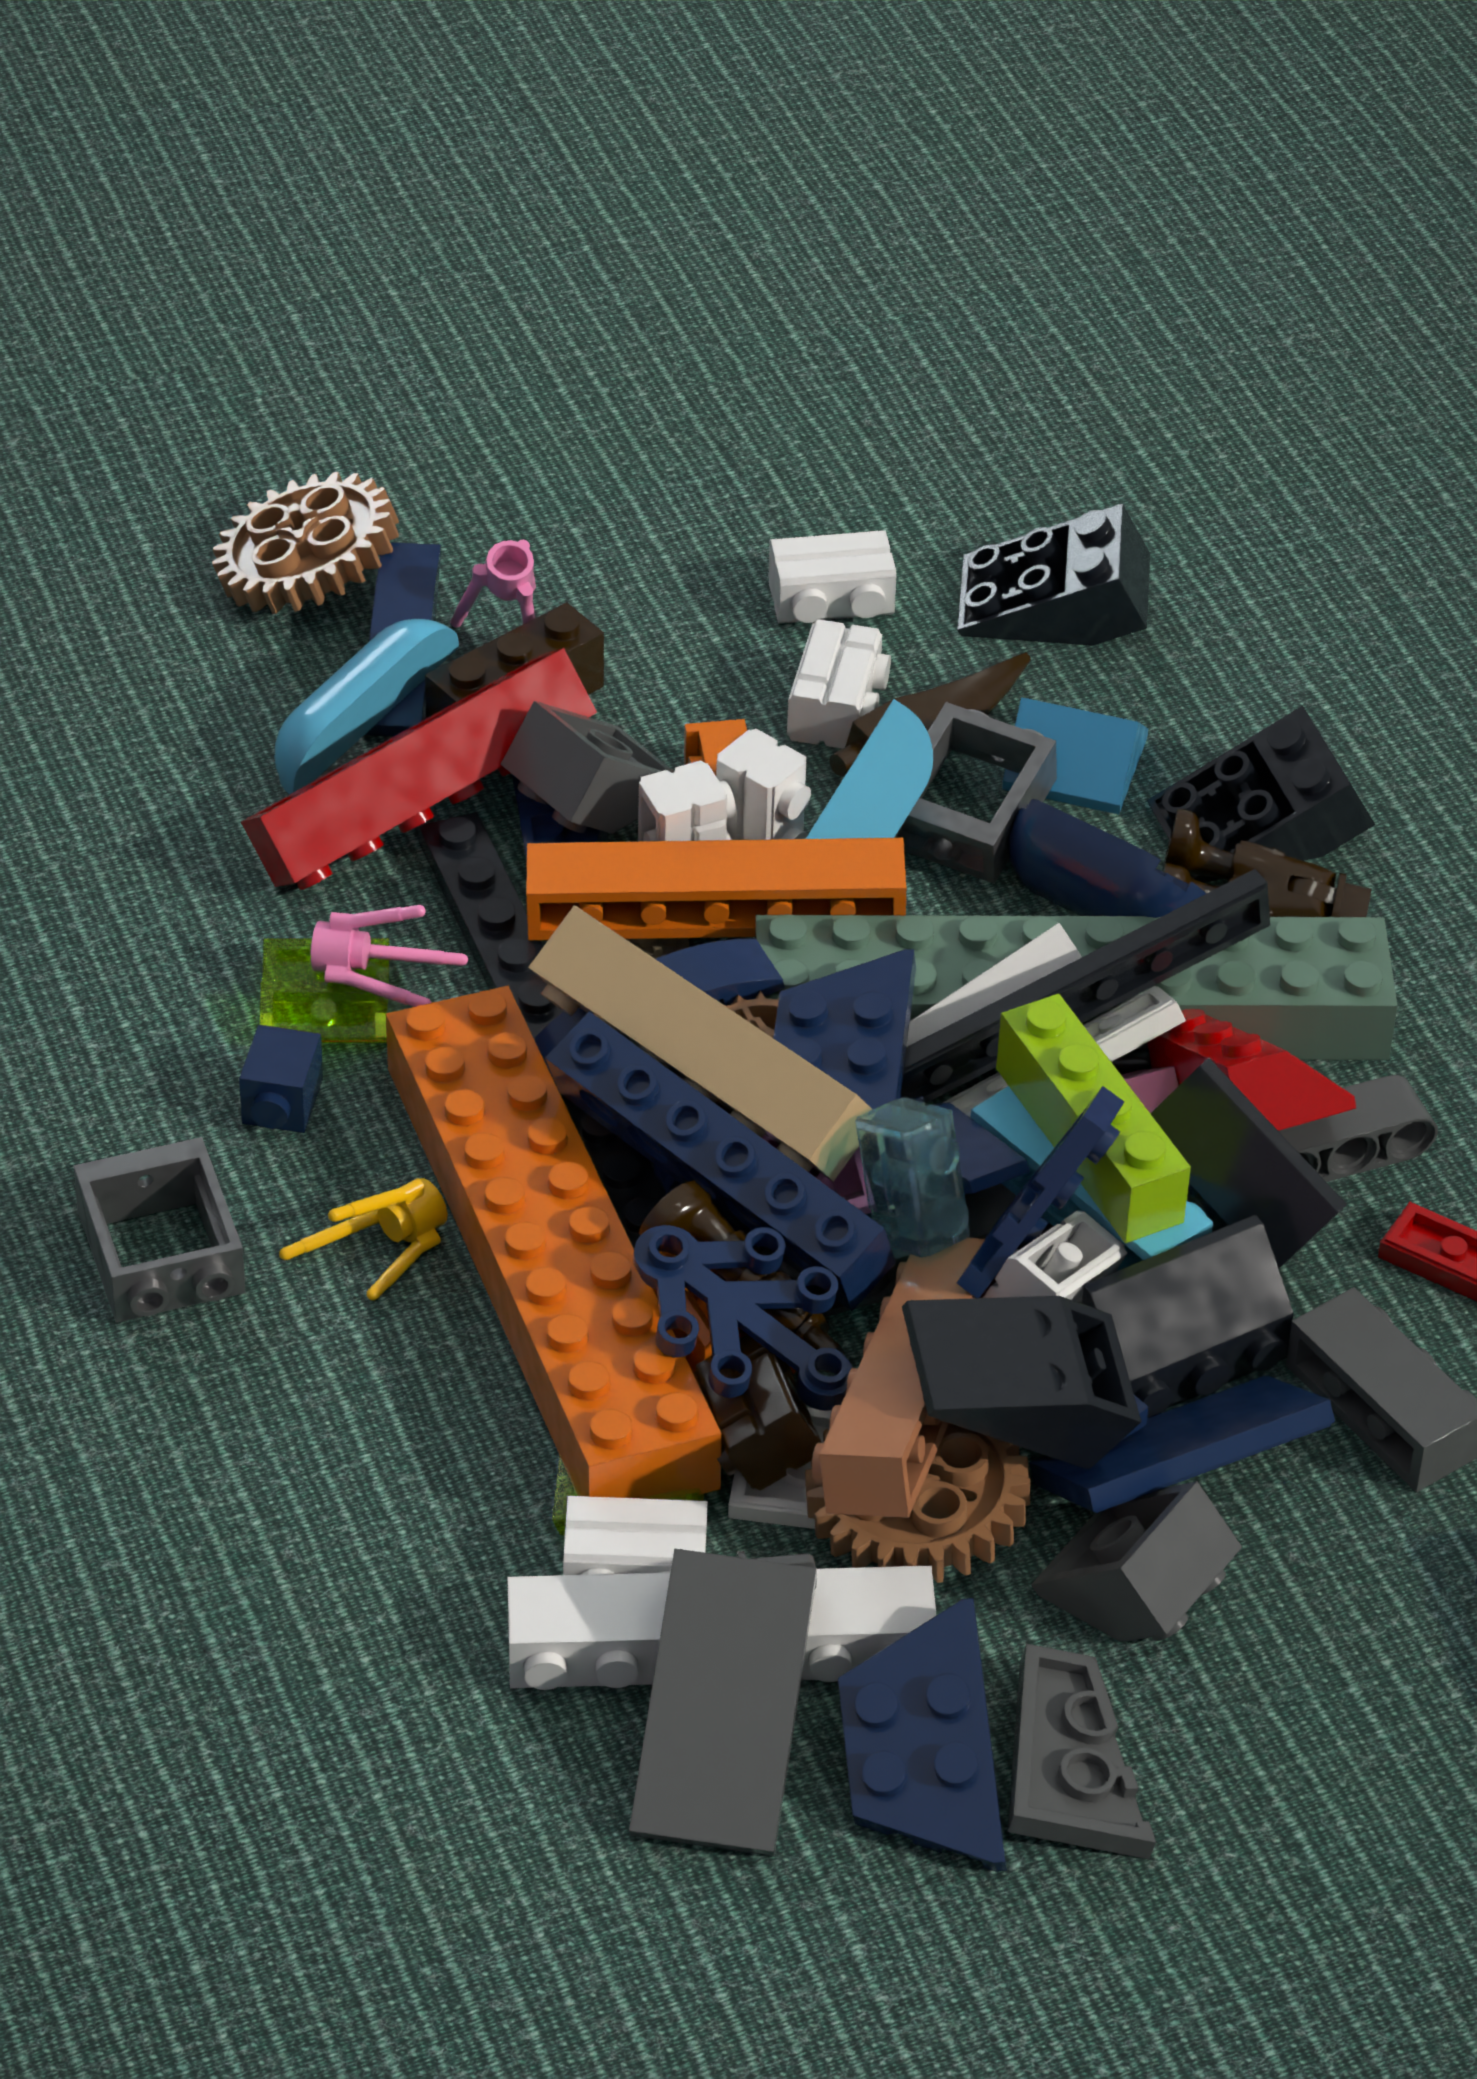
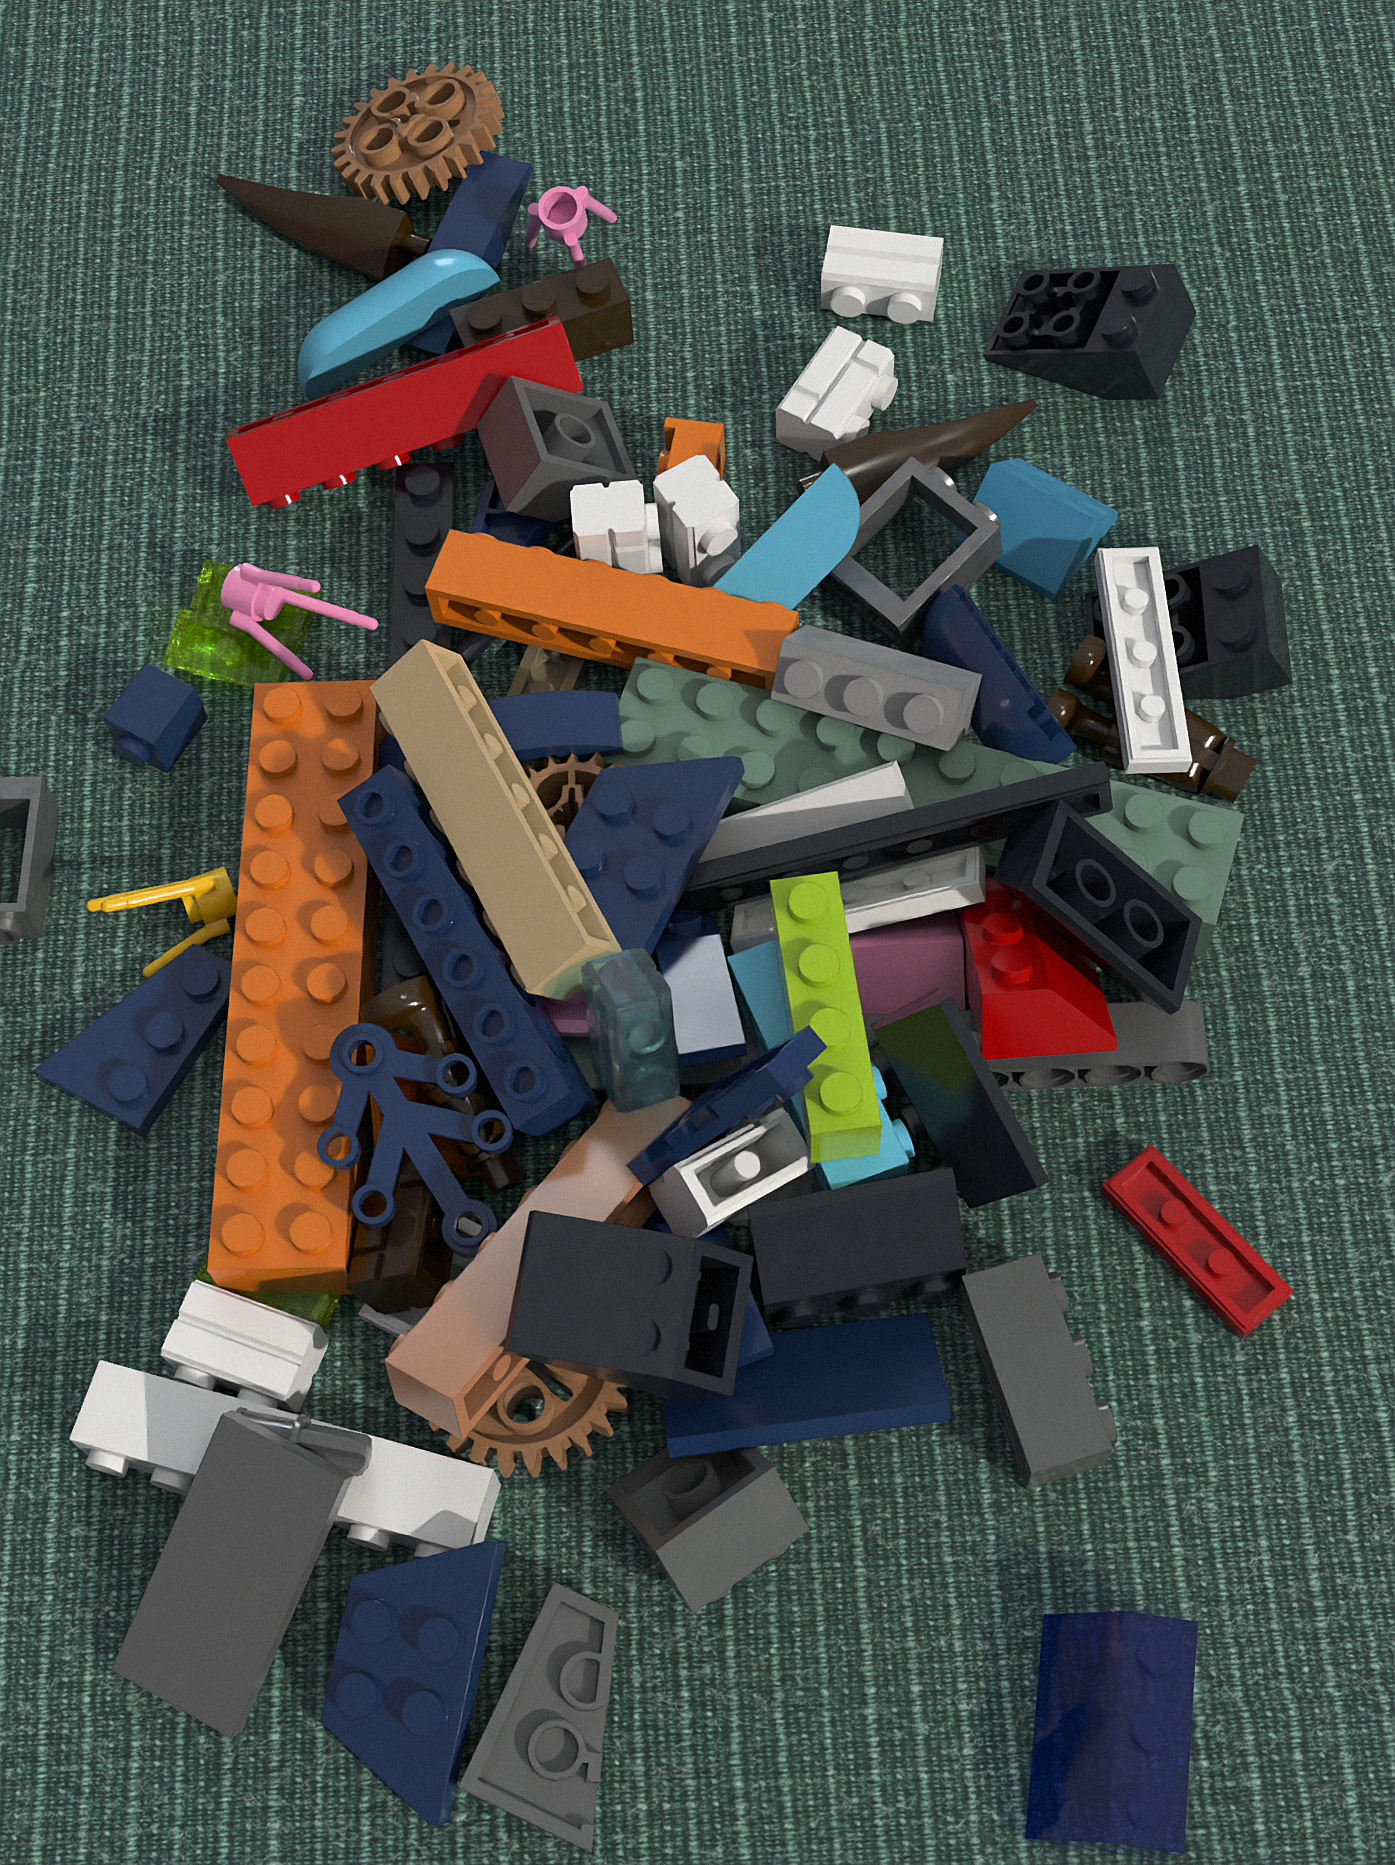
camera: 25 degrees right, 20 degrees up
(262, 639) = (340, 228): none -> dark brown piece
(402, 1347) = (145, 1043): none -> dark blue wing
(1002, 883) = (876, 687): none -> light grey brick
(1234, 816) = (1142, 661): none -> white tile
(1291, 1000) = (1102, 904): none -> black slope

